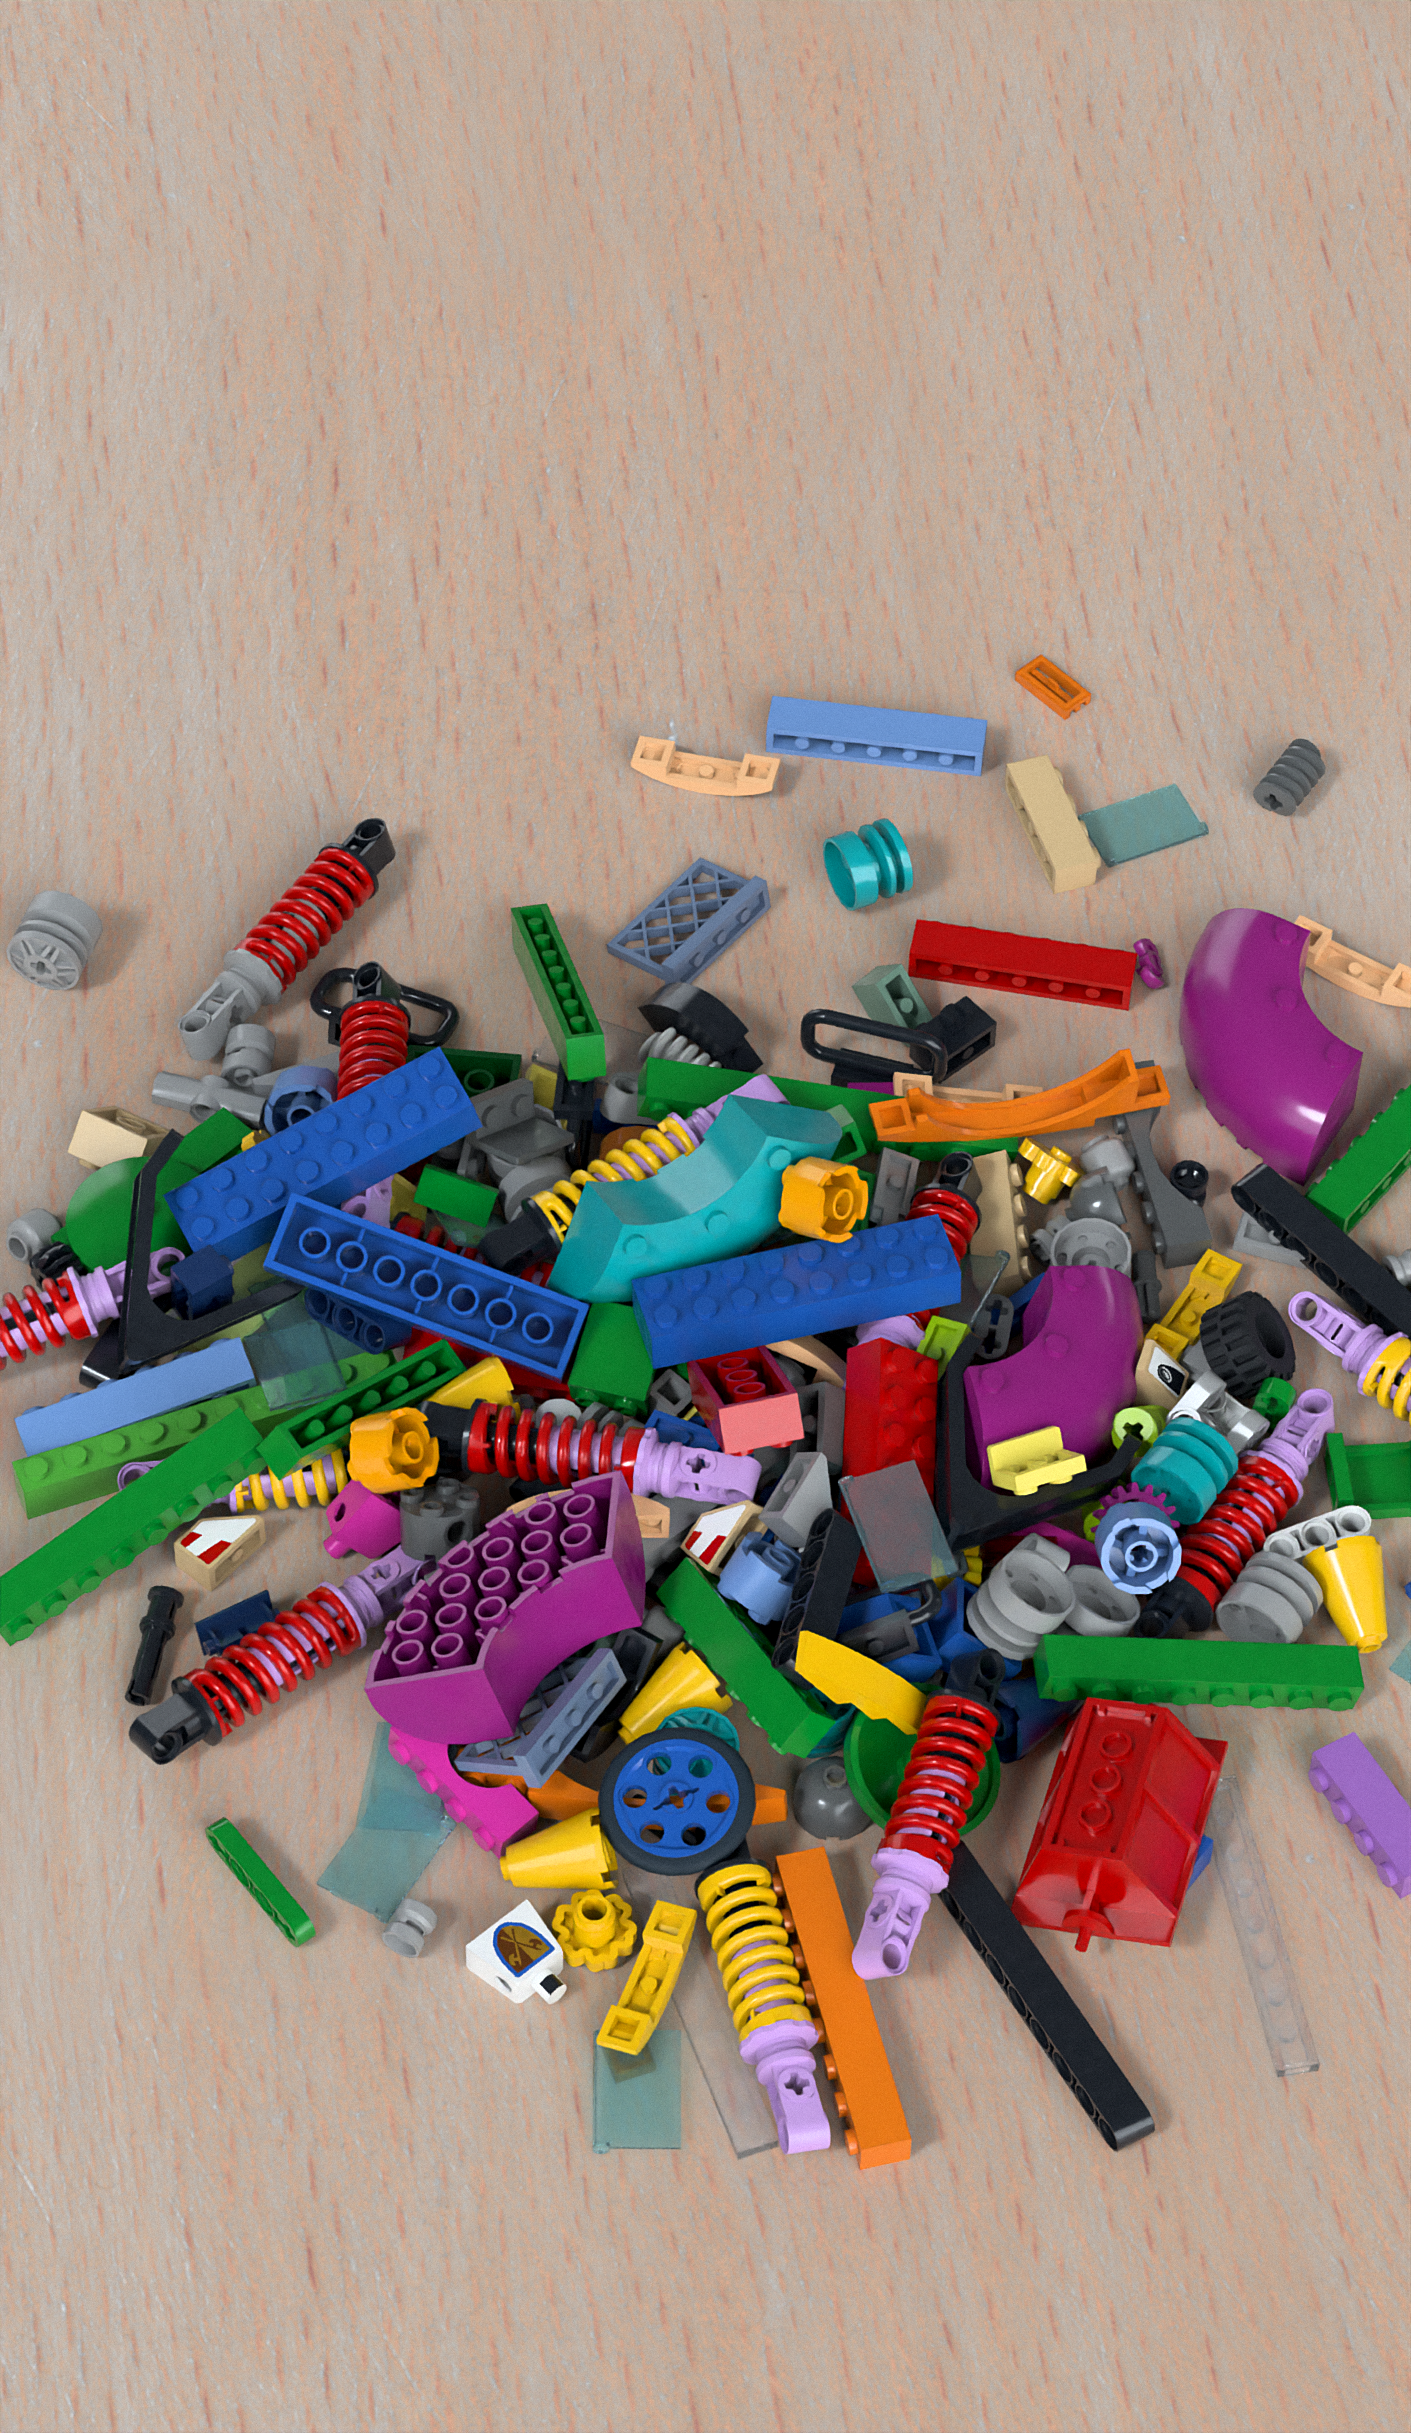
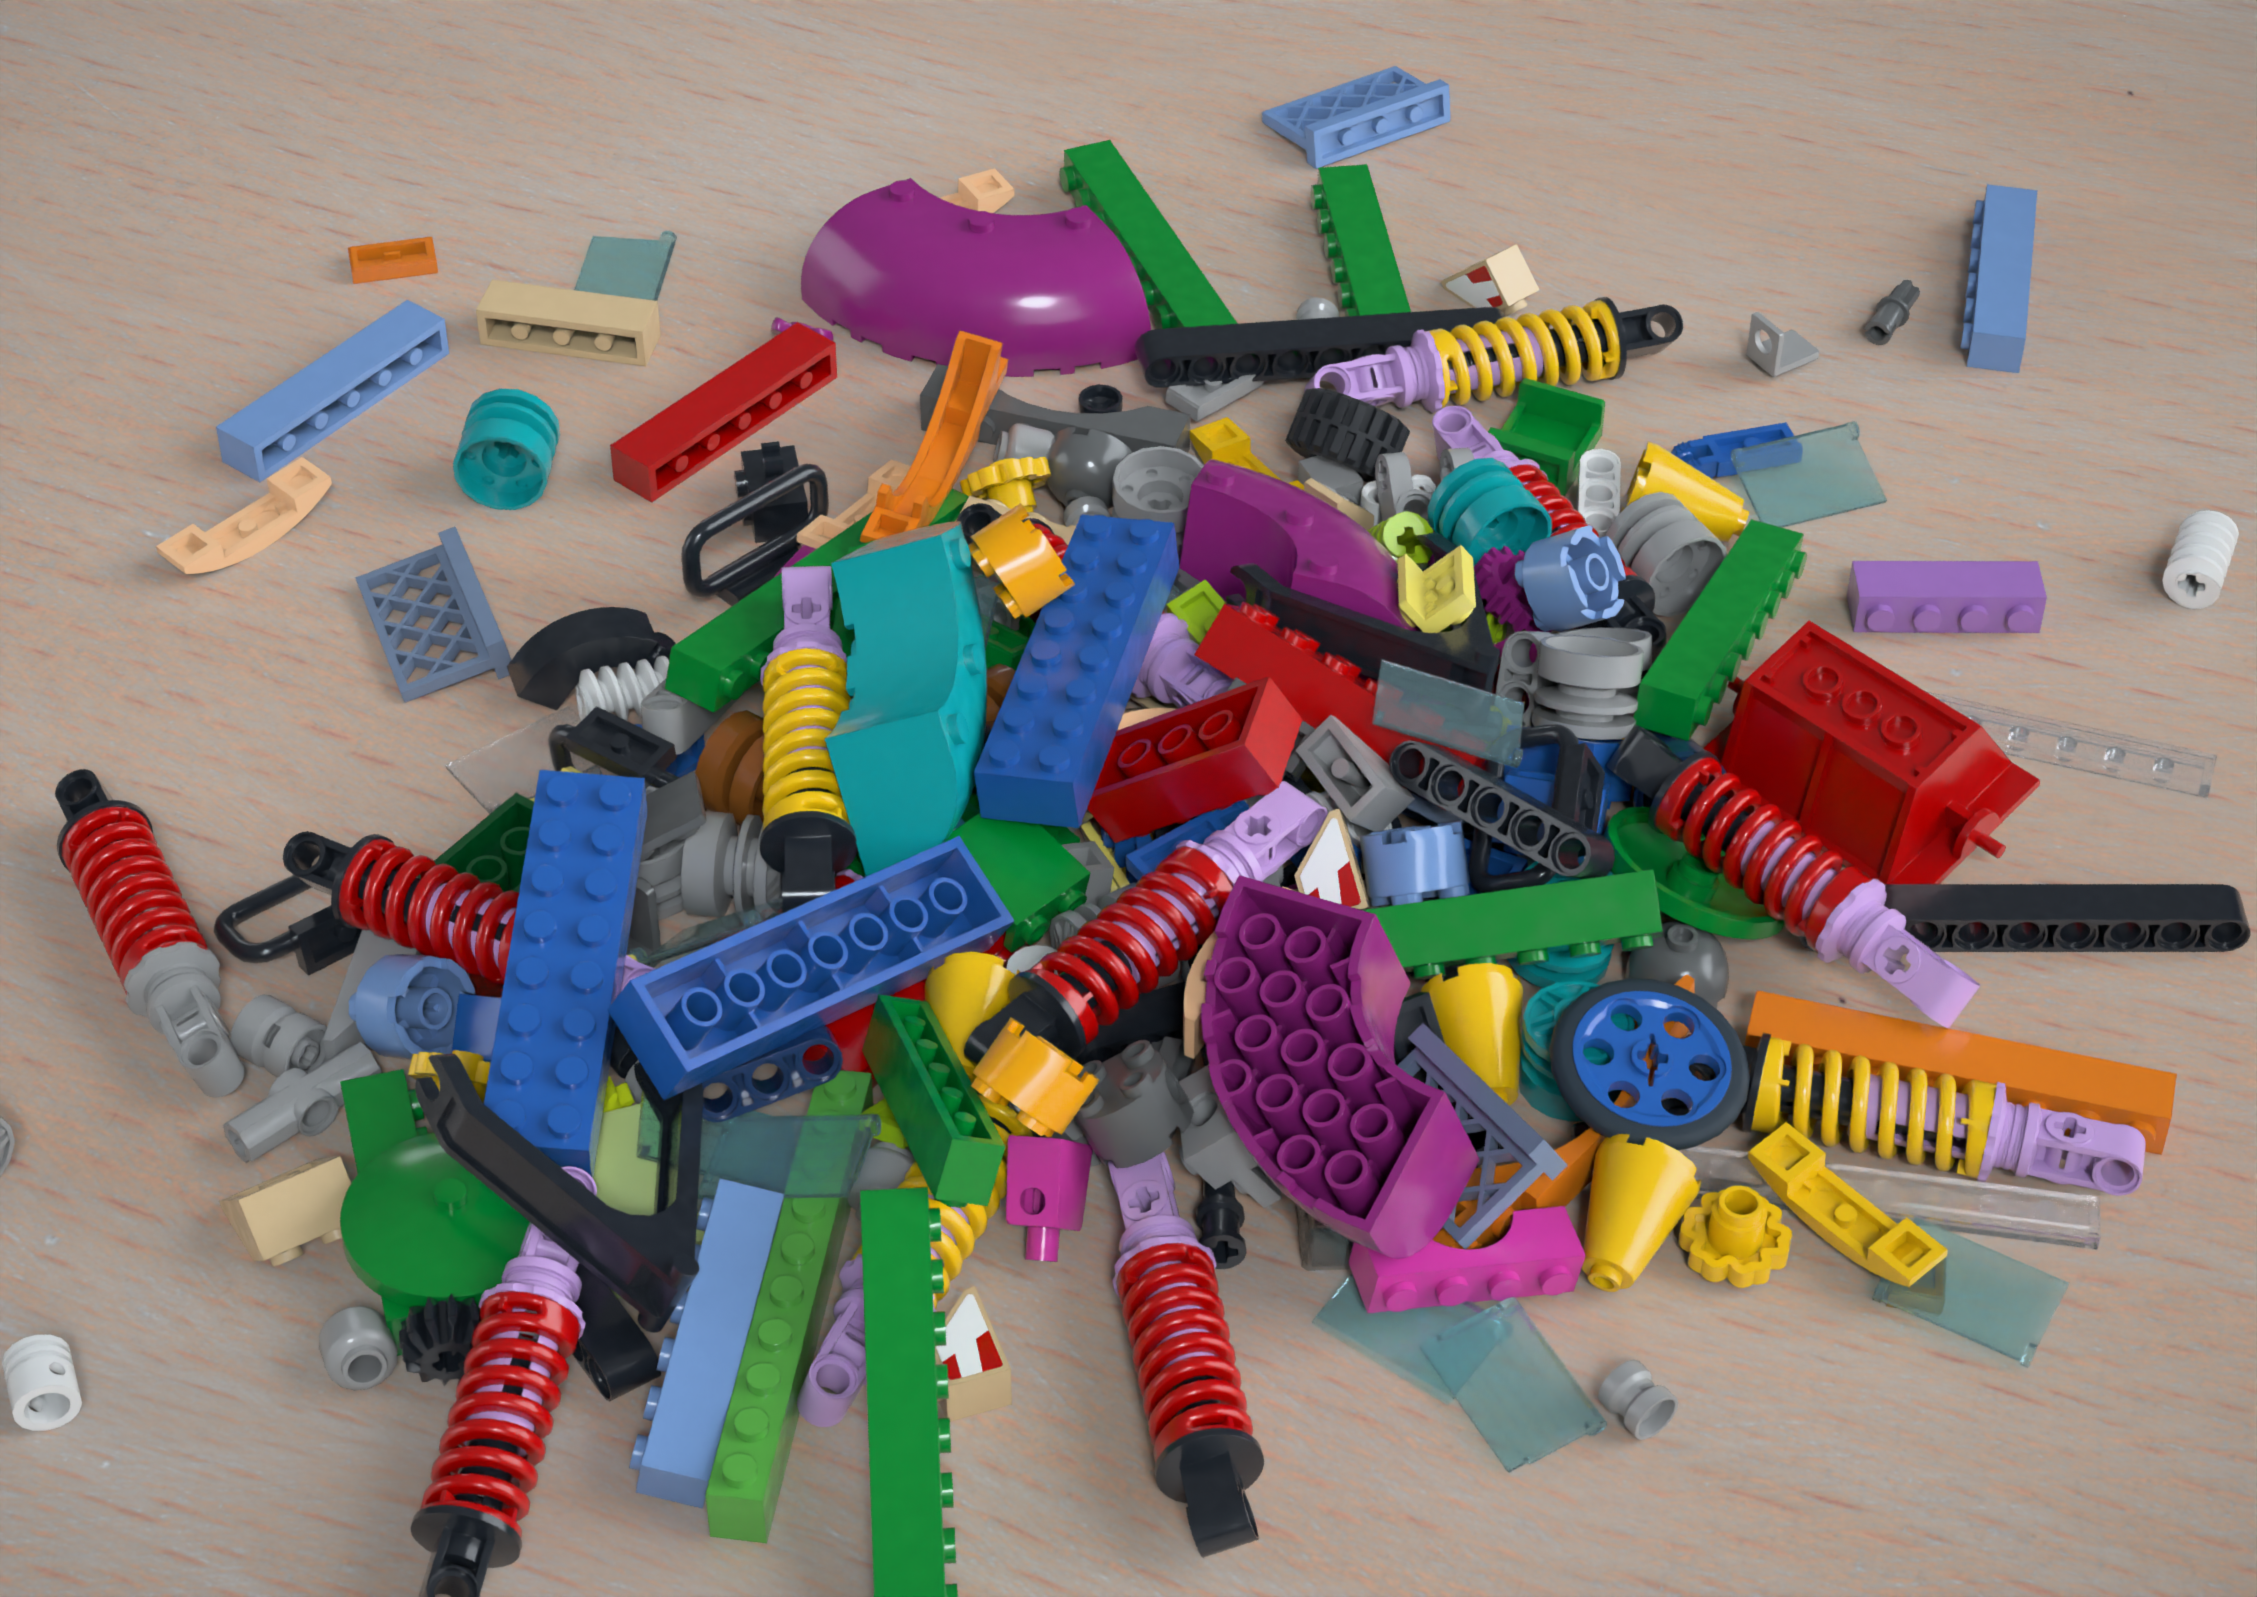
camera: 60 degrees left, 10 degrees down
(156, 1630) = (1041, 1469): black pin -> none
(201, 1284) = (625, 1166): dark blue brick -> none
(234, 1622) = (1100, 1403): dark blue hinge -> none
(260, 1882) = (1421, 1524): green beam -> none
(456, 1195) = (671, 918): green tile -> none
(518, 1957) = (1736, 1315): white torso -> none
(558, 992) = (484, 707): green brick -> none
(858, 1680) = (1628, 827): yellow slope -> none
(892, 997) = (678, 505): sand green slope -> none
(1274, 1400) = (1424, 448): green beam -> none
(1290, 778) = (673, 154): dark grey piece -> none

